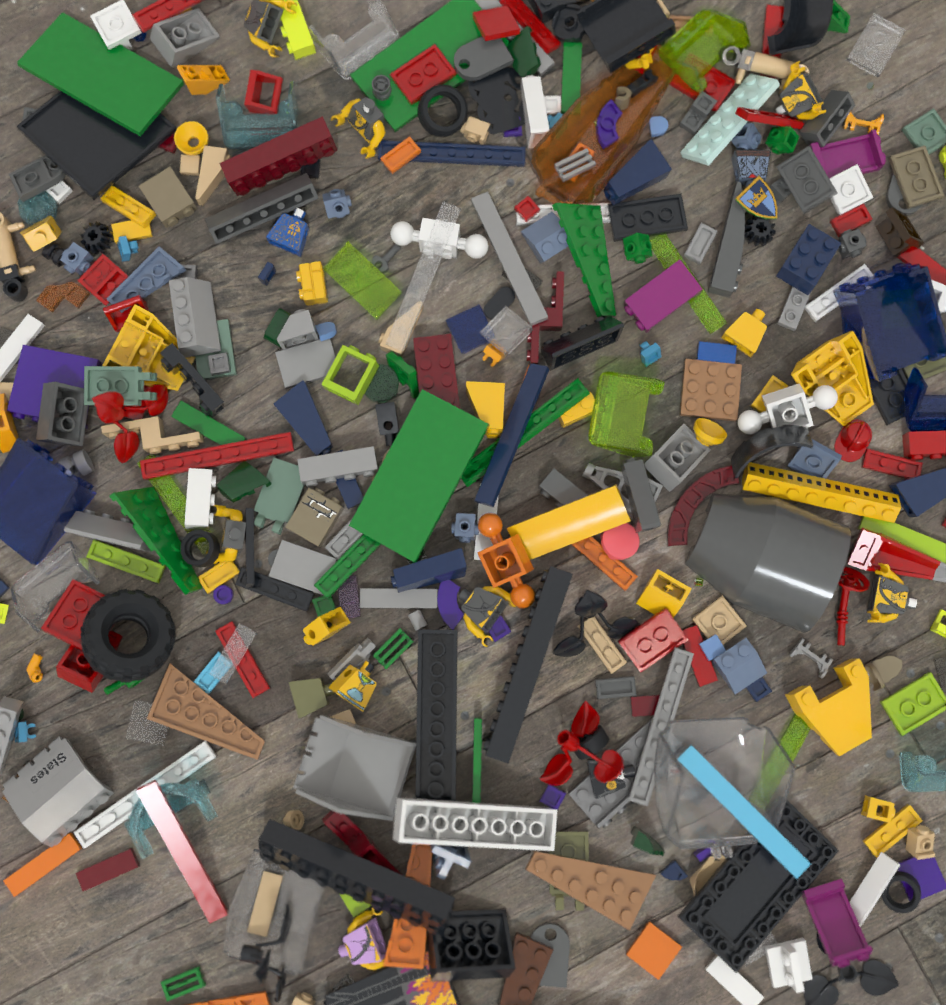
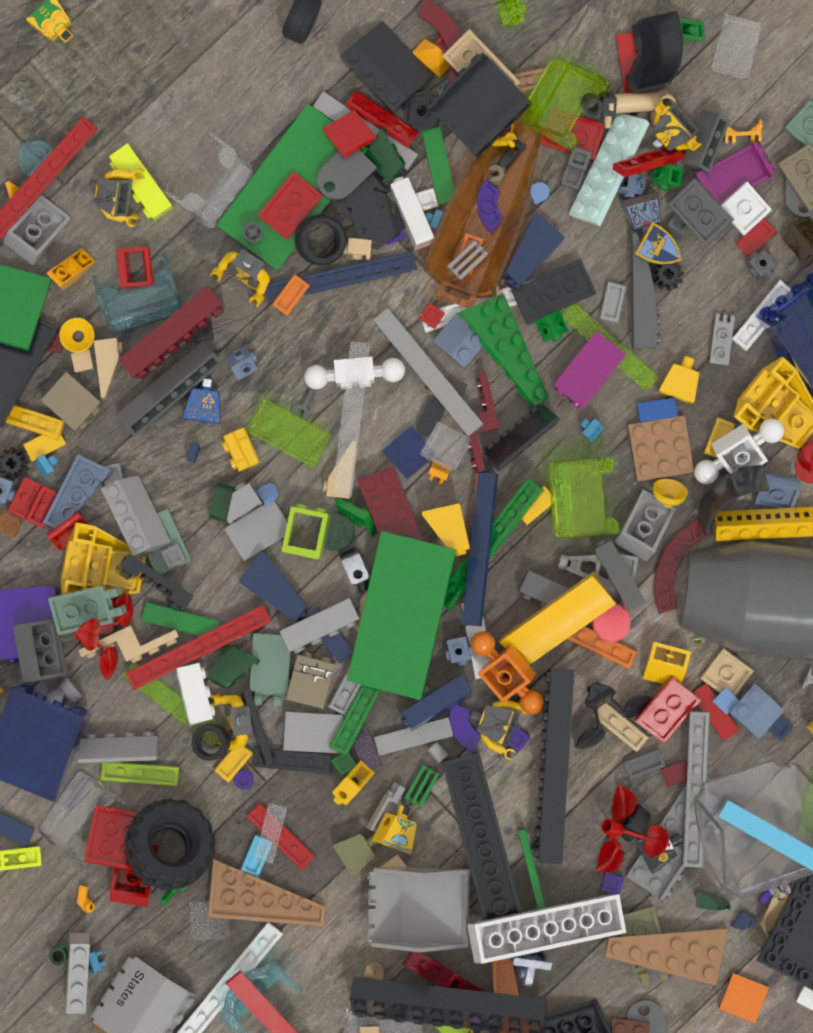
camera: 15 degrees left, 5 degrees up
(158, 533) = (166, 739): green wing -> none
(808, 259) = (723, 293): dark blue brick -> none

